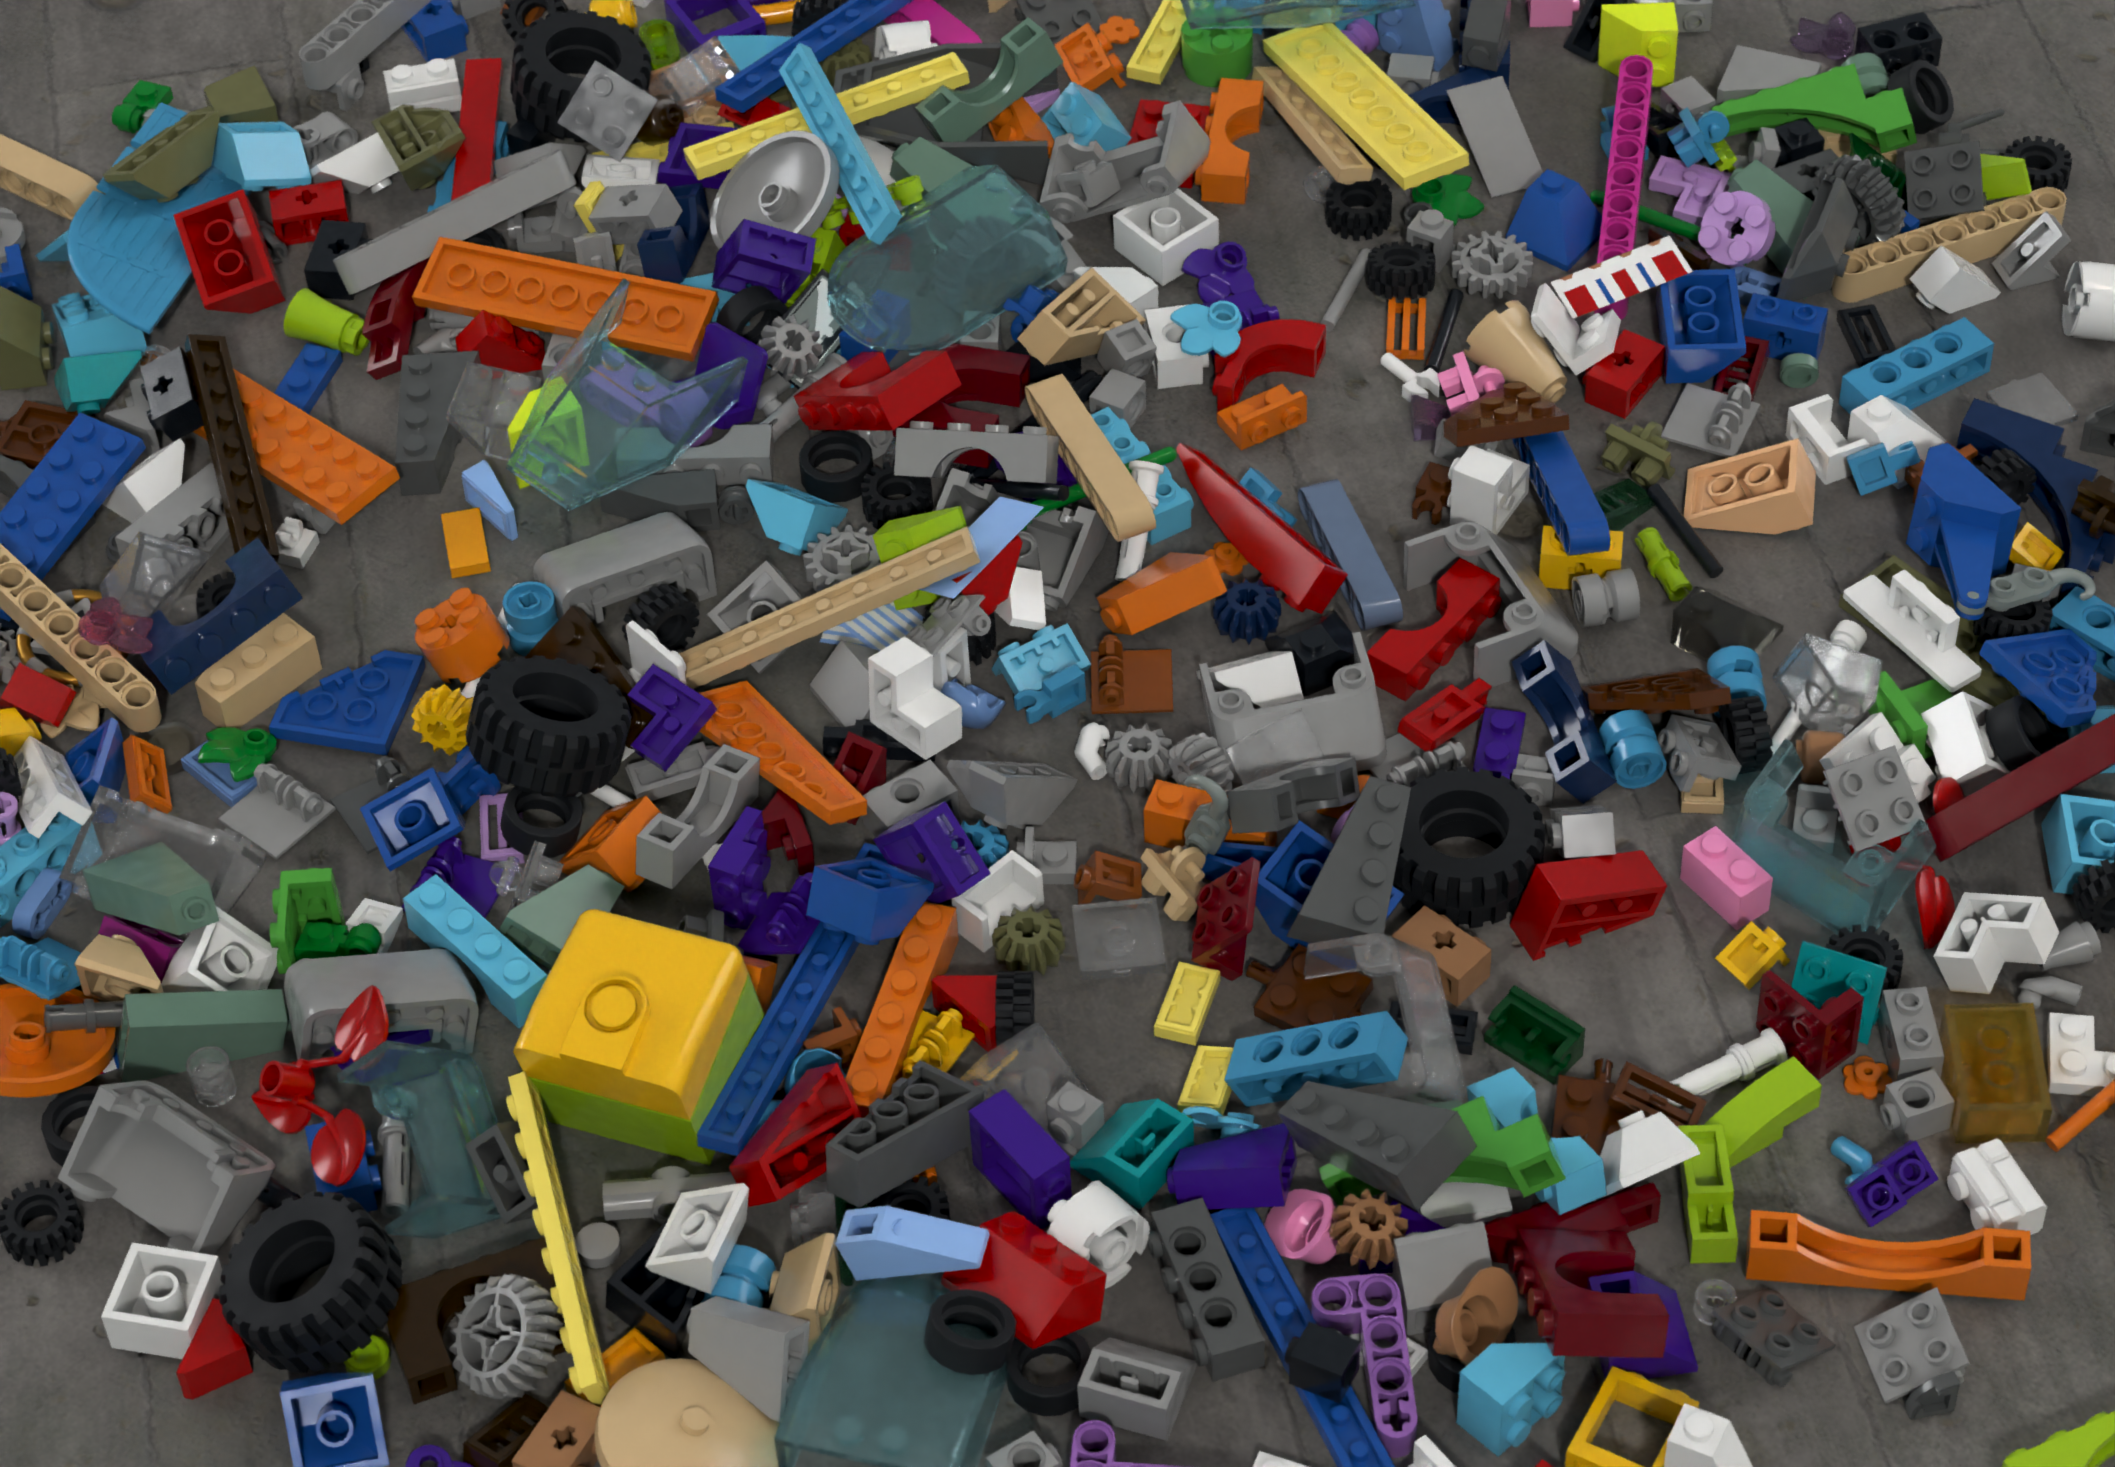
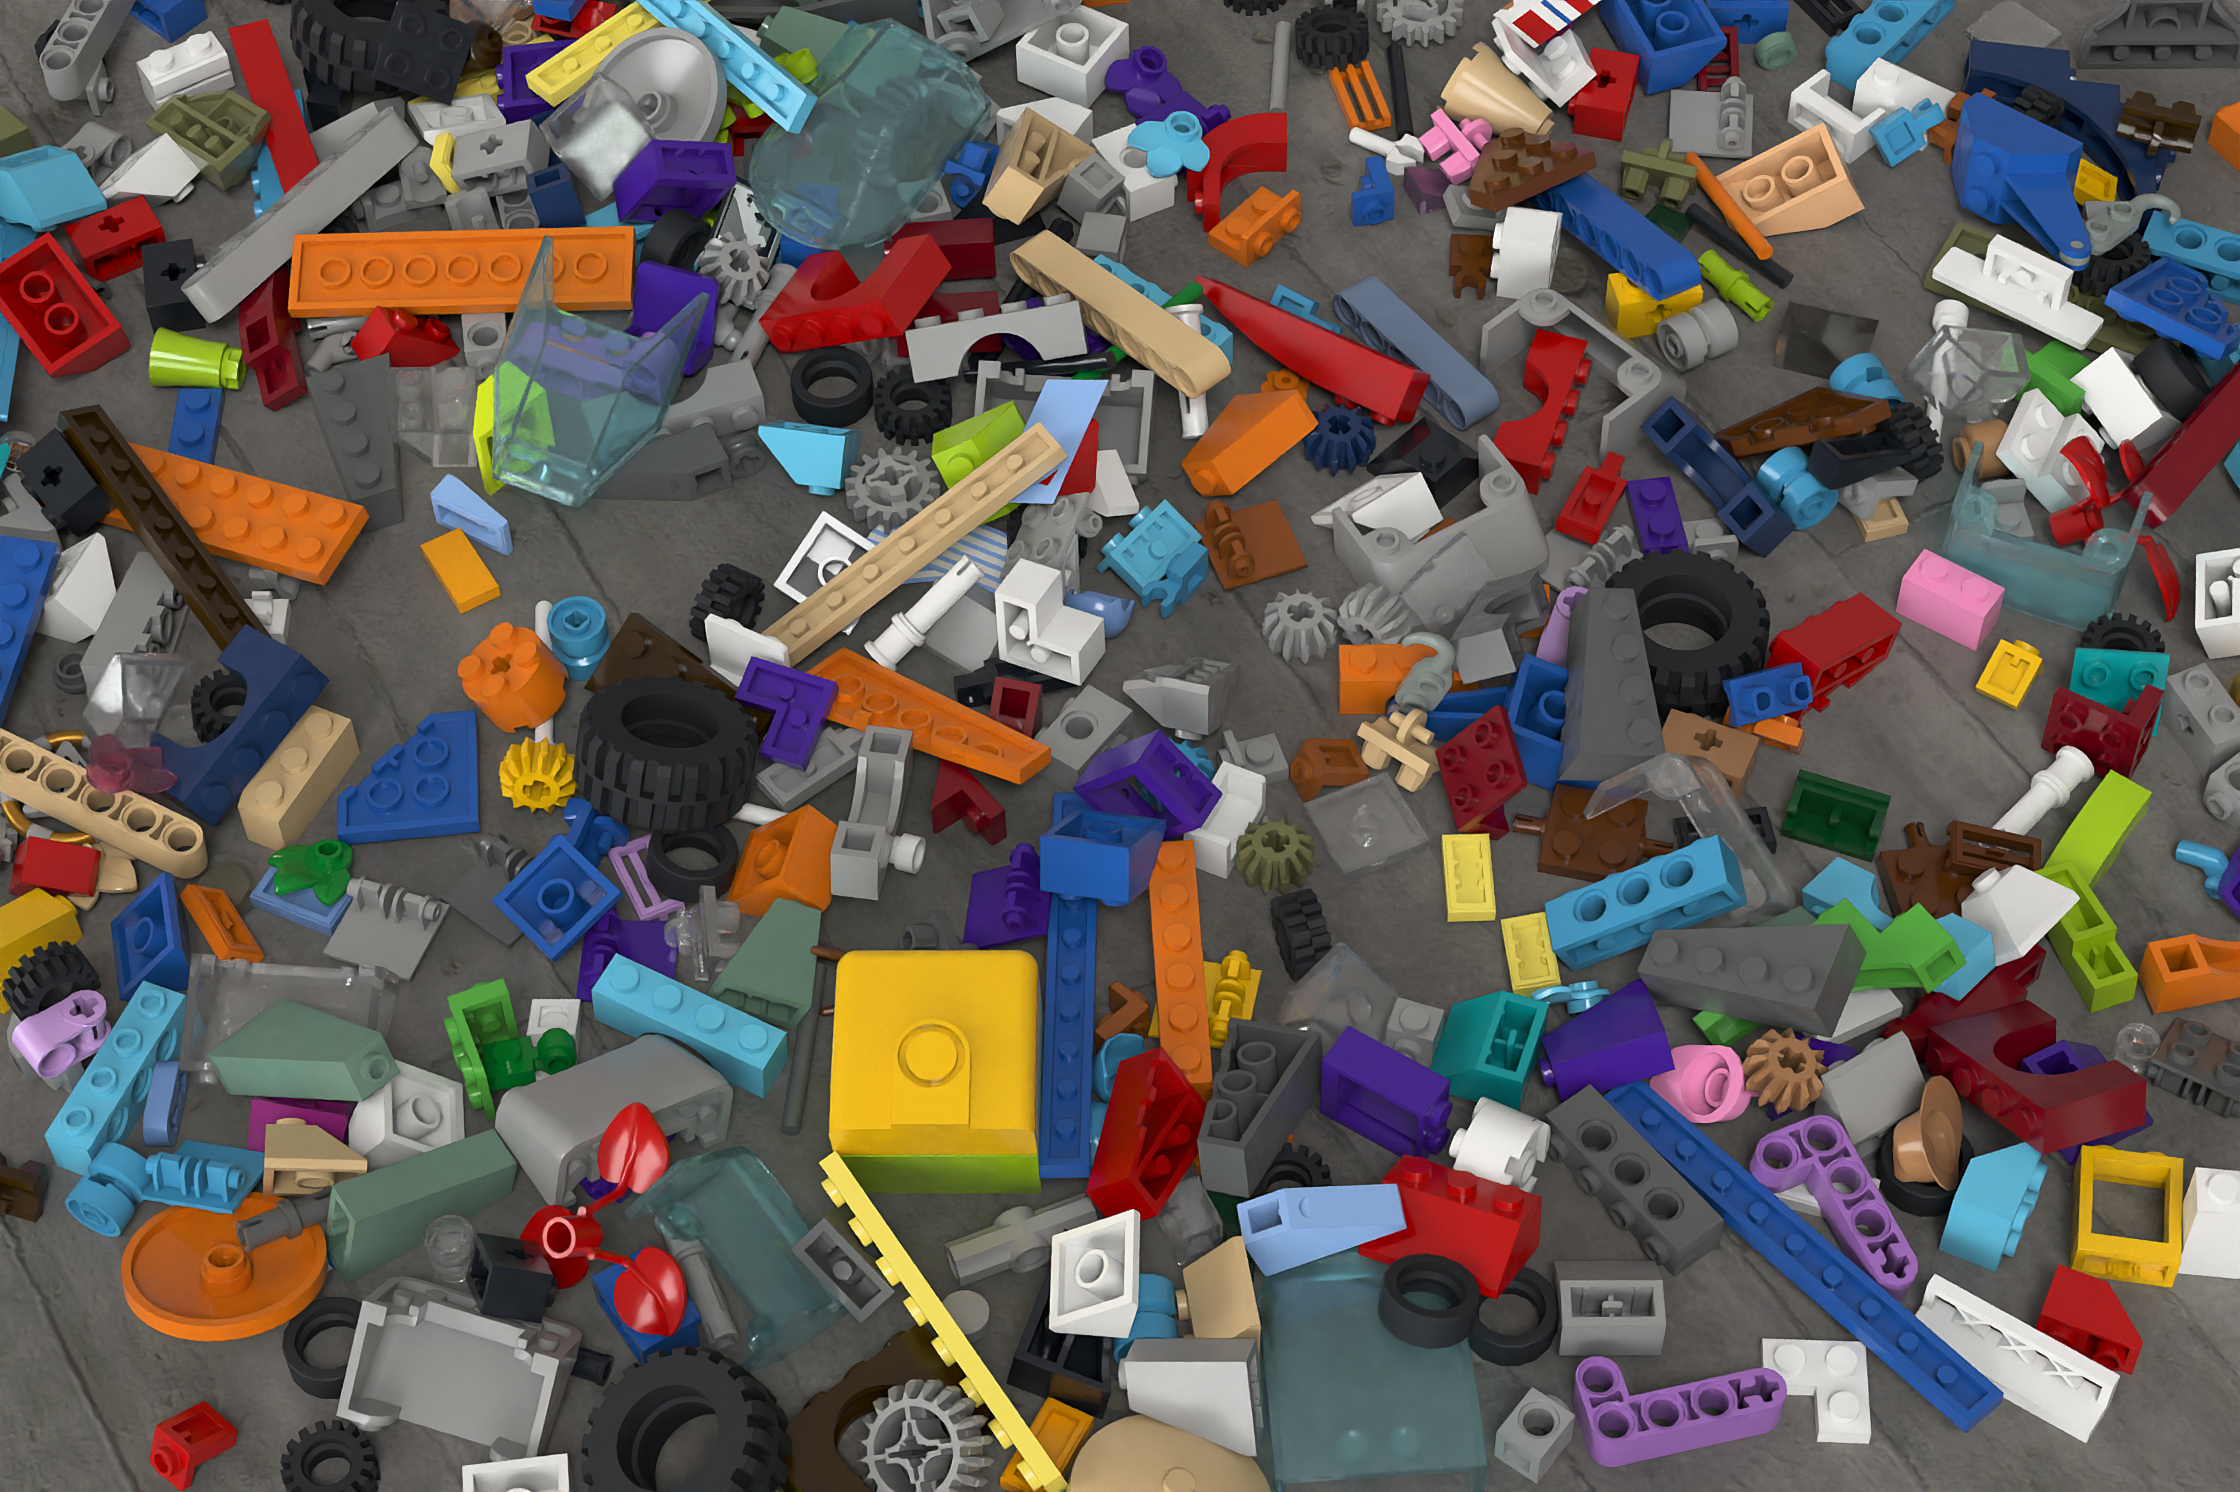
camera: 20 degrees left, 5 degrees up
(47, 788) = (135, 969): white fence -> none
(237, 1109) = (510, 1278): none -> black brick
(627, 564) = (660, 552): light grey windscreen -> none
(716, 204) = (598, 133): none -> clear slope
(740, 870) = (944, 861): dark purple plate -> none
(805, 676) = (909, 628): none -> white pin
(974, 998) = (1254, 933): red slope -> none
(1087, 749) = (1238, 629): white arm -> none
(1323, 1361) = (1799, 1226): black brick -> none
(1374, 419) = (1376, 195): none -> blue bracket
(1507, 911) = (1767, 693): none -> blue hips
(1514, 950) = (1775, 731): none -> orange plate
(1581, 831) = (1797, 587): light grey brick -> none
(1681, 731) = (1853, 458): none -> black slope
(1688, 494) = (1730, 208): none -> orange bar
(1866, 1077) = (2172, 771): orange plant -> none
(1873, 798) = (2090, 482): light grey hinge -> none

